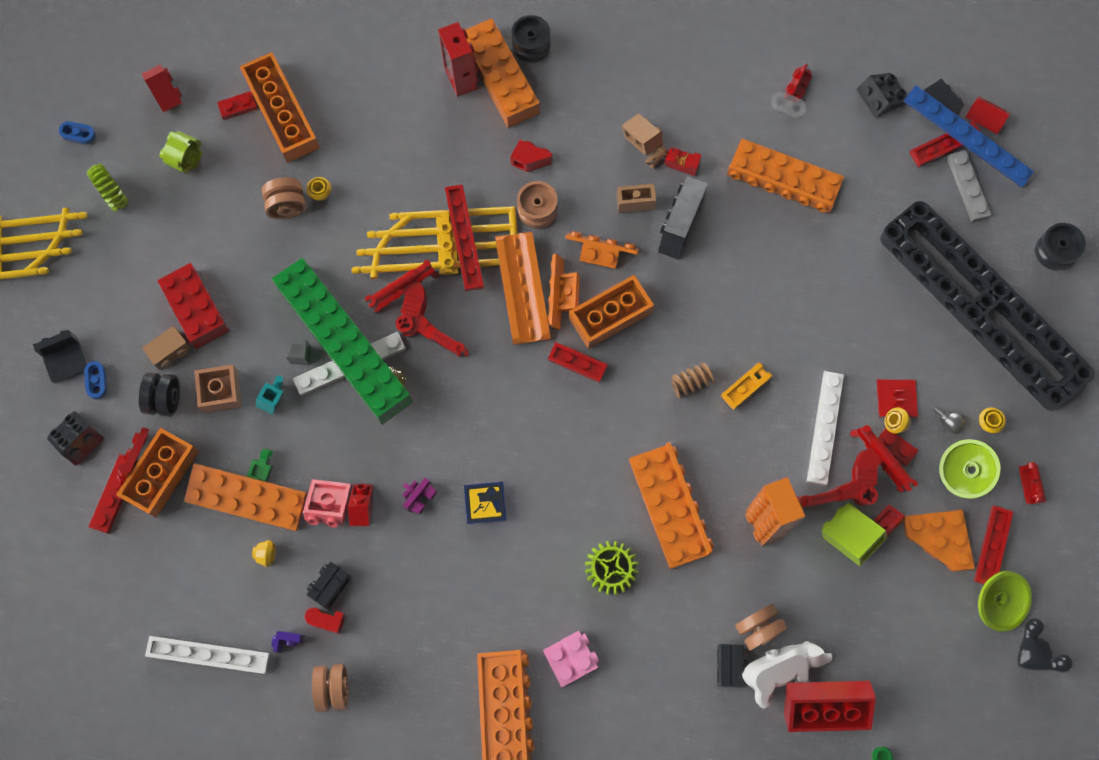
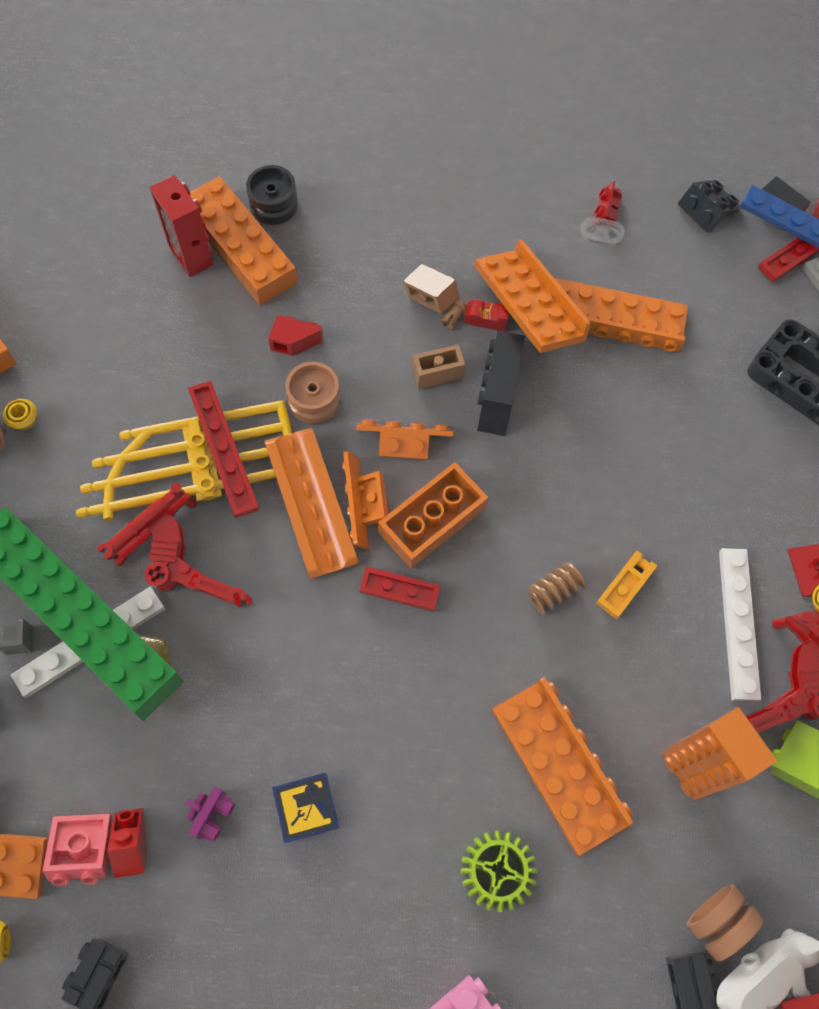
camera: 15 degrees left, 5 degrees down
(719, 154) = (534, 298): none -> orange bracket

